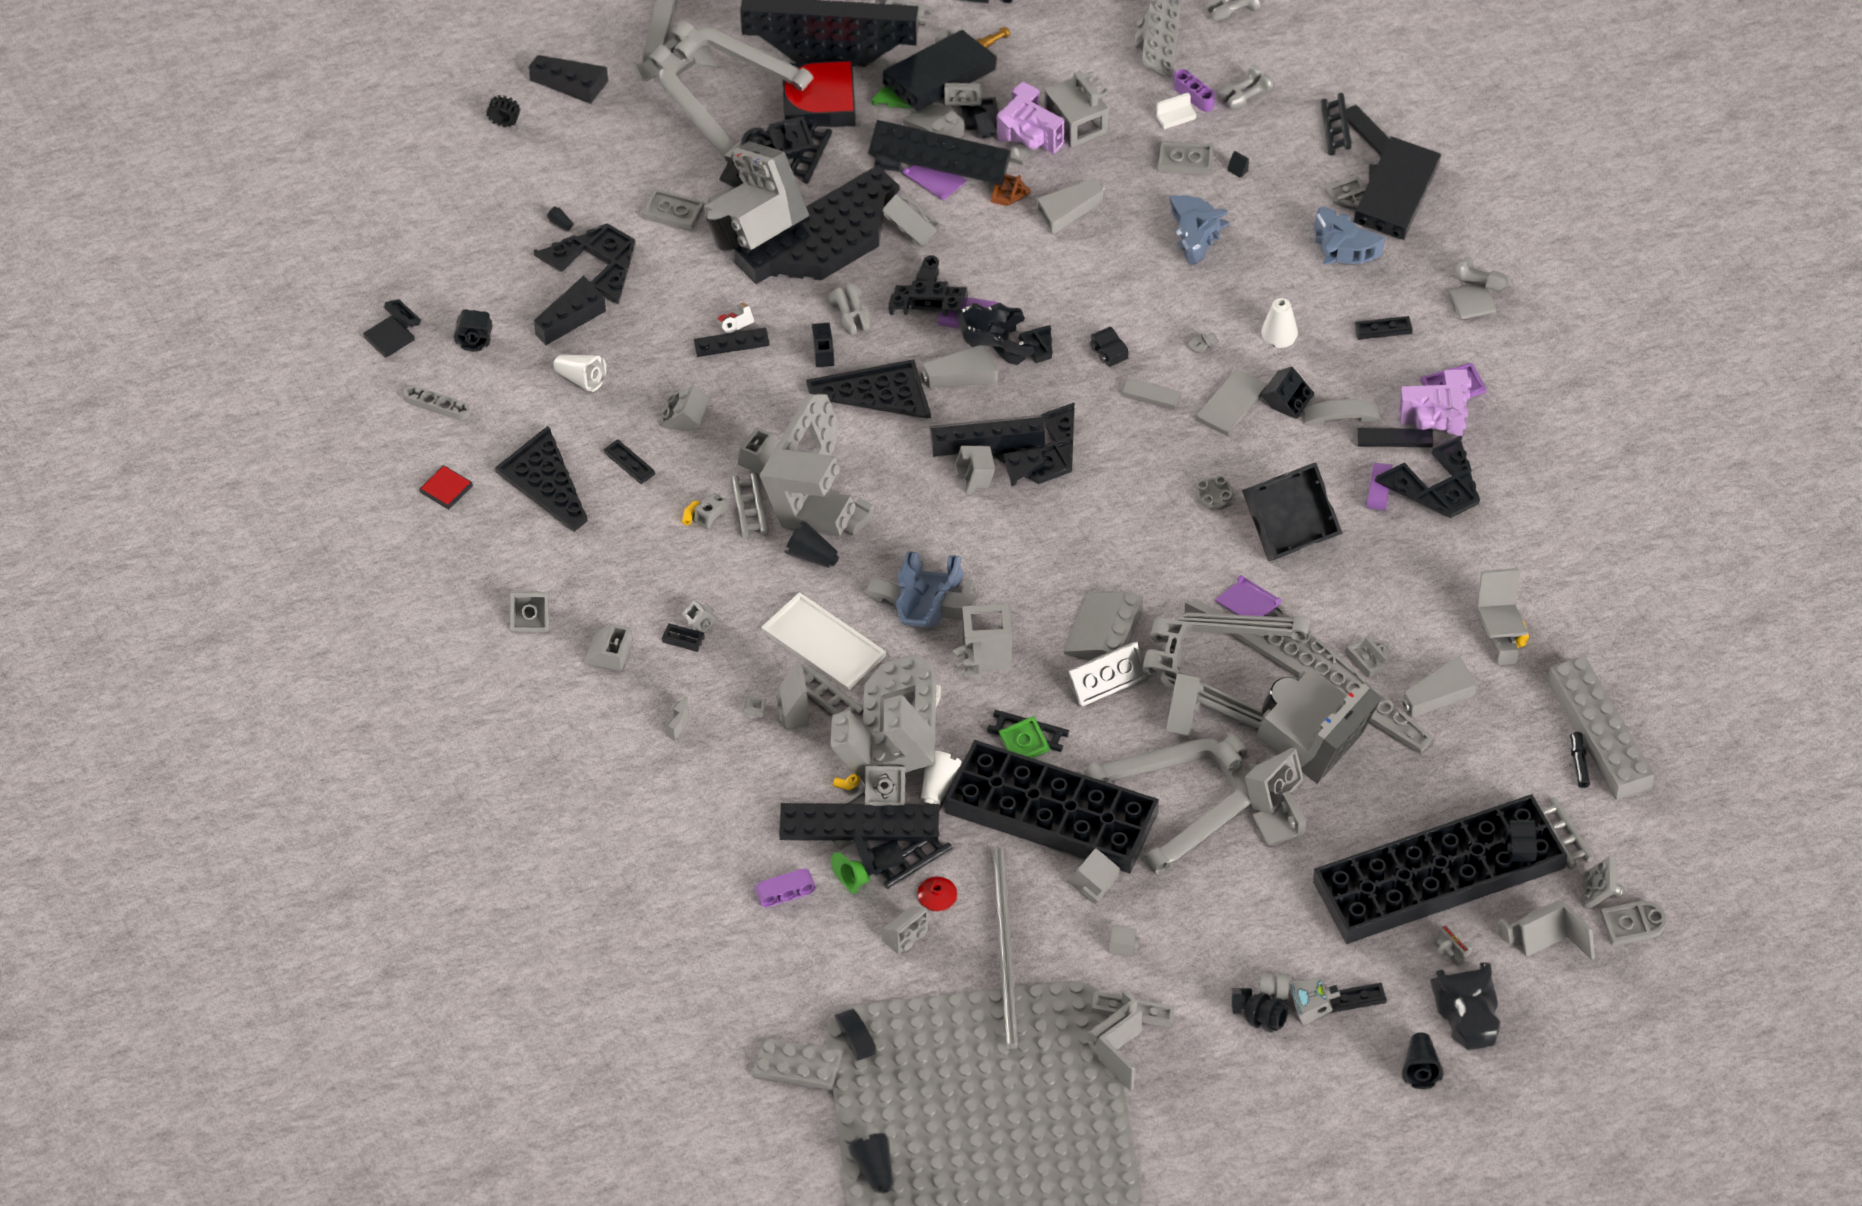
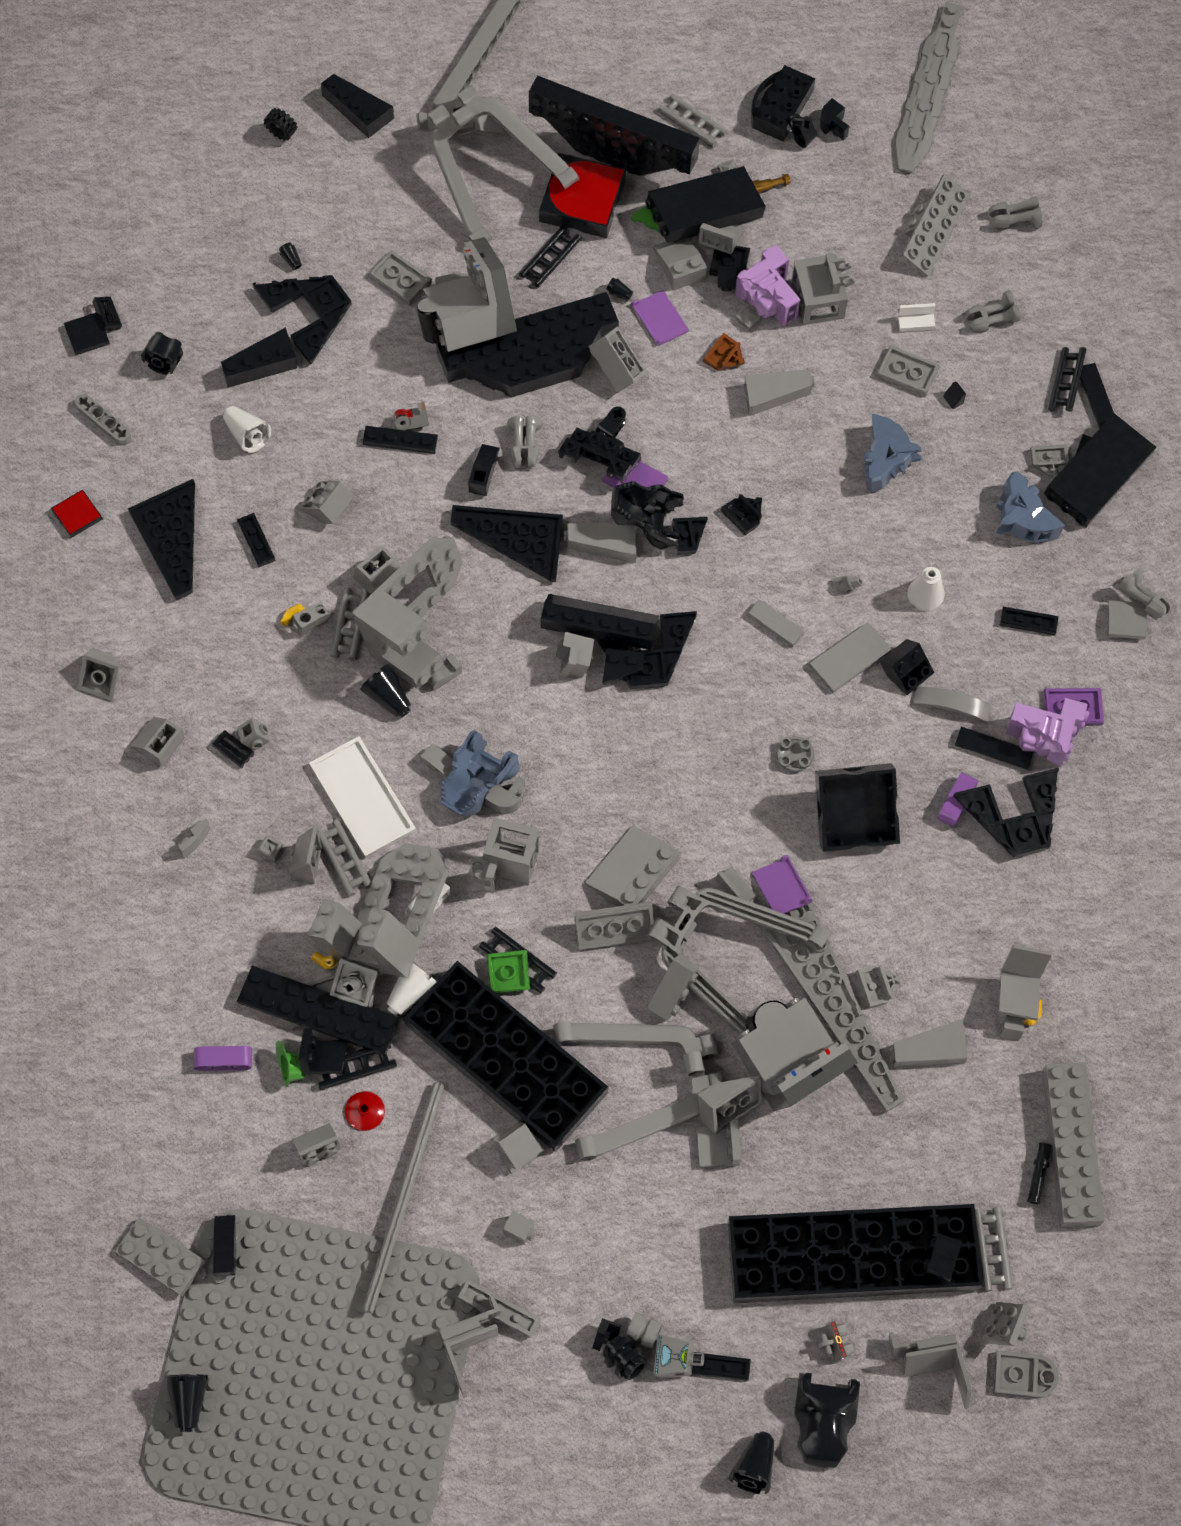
camera: 15 degrees right, 15 degrees up
(787, 136) = (525, 237): black plate -> none
(940, 152) = (672, 295): black plate -> none
(1082, 313) = (744, 513): none -> black slope
(1109, 346) = (754, 559): black brick -> none
(1200, 93) = (940, 292): medium lavender beam -> none

